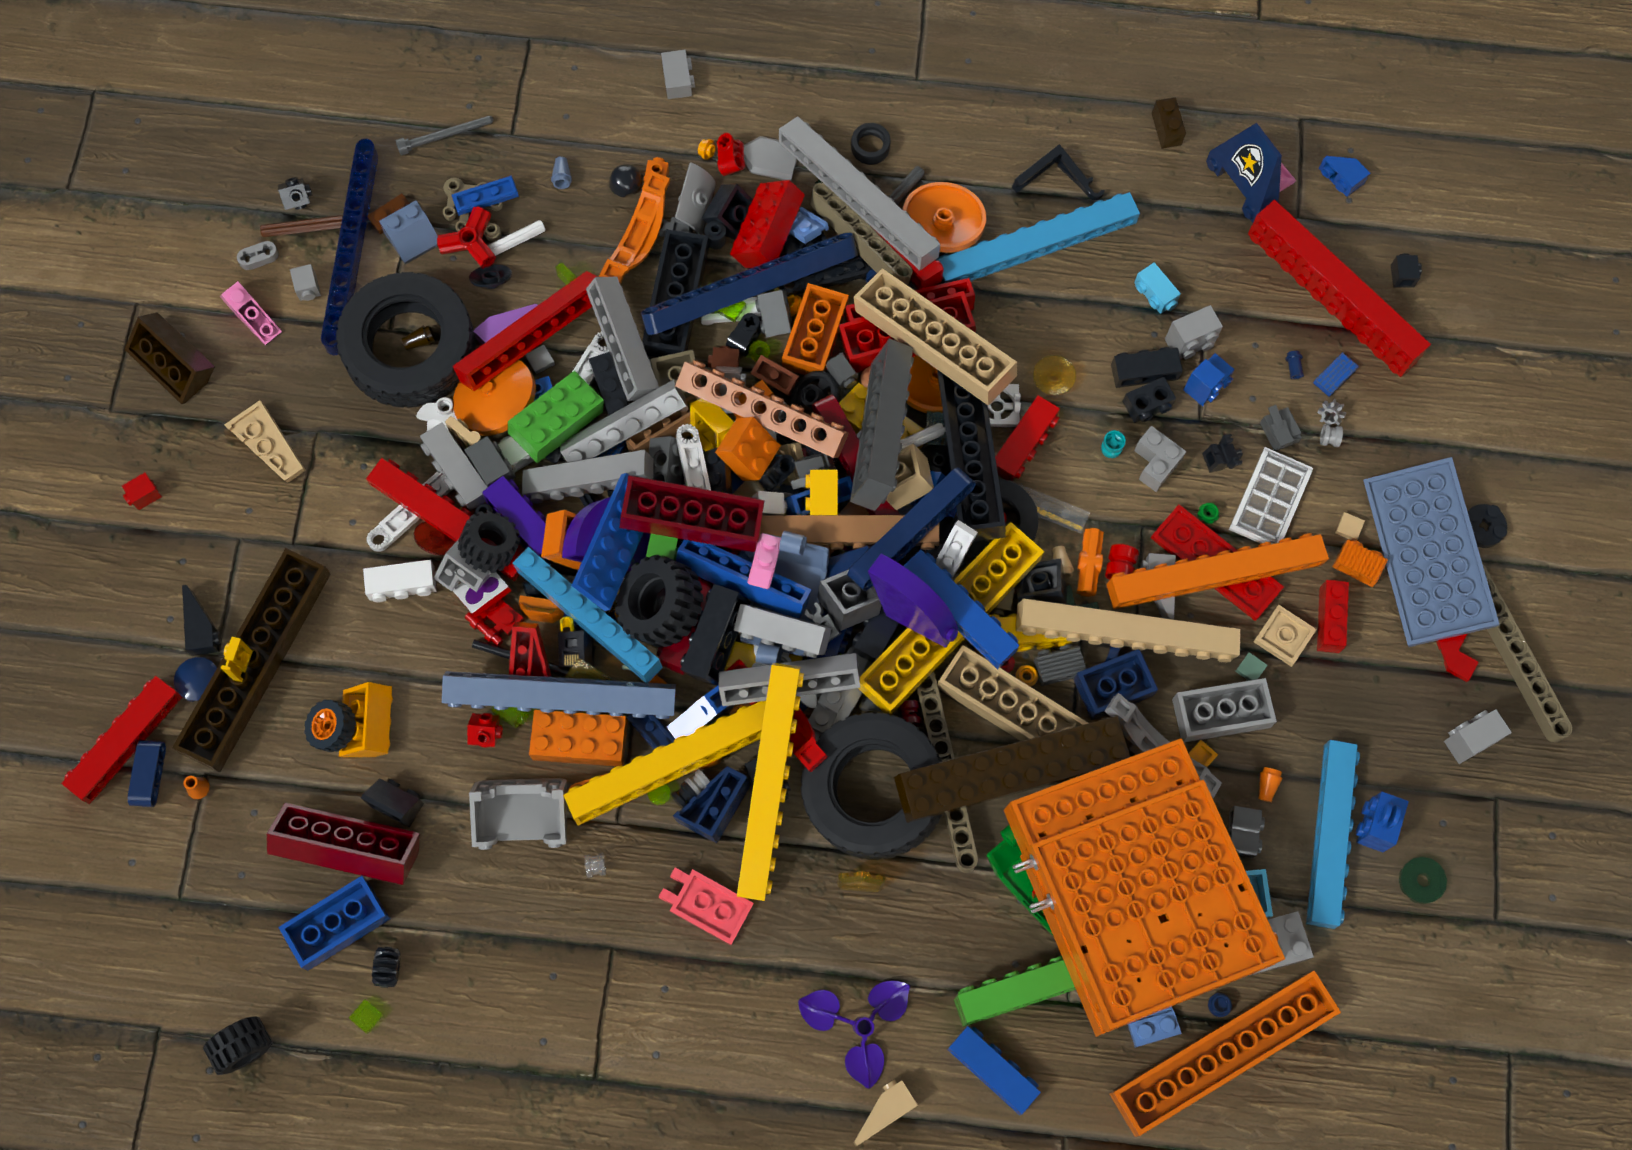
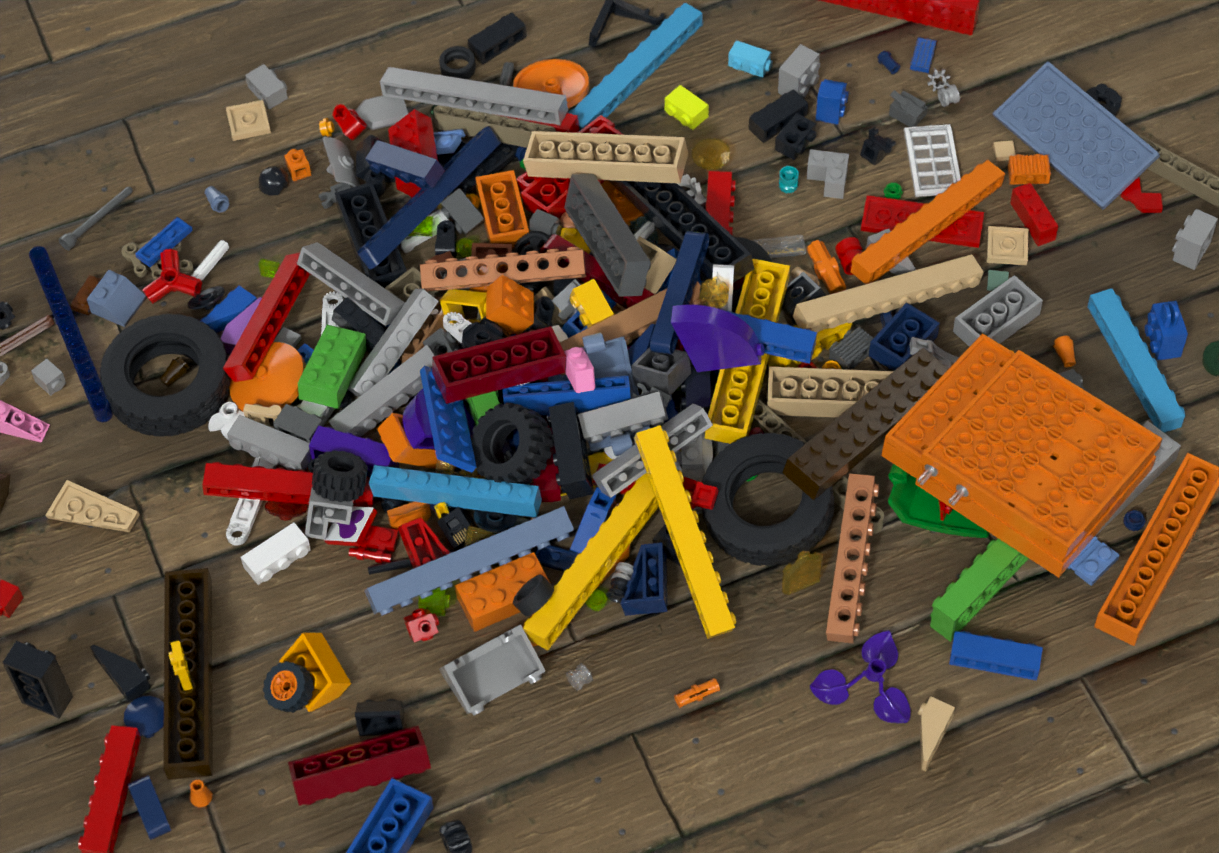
camera: 25 degrees left, 15 degrees down
(111, 598) = (38, 679): none -> black brick
(500, 300) = (228, 309): none -> blue slope
(592, 766) = (533, 595): none -> black tyre
(597, 660) = (494, 521): none -> black dish
(639, 102) = (248, 120): none -> tan plate
(642, 229) = (311, 202): orange piece -> none
(693, 943) = (697, 692): none -> orange pin
(702, 463) = (475, 331): none -> black plate
(707, 905) = (688, 659): coral tile -> none
(741, 238) = (404, 165): none -> dark blue brick
(859, 952) = (836, 629): none -> nougat brick
(925, 134) = (497, 38): none -> black brick
(941, 550) = (715, 288): none -> clear yellow brick
(1061, 310) = (686, 107): none -> neon yellow brick

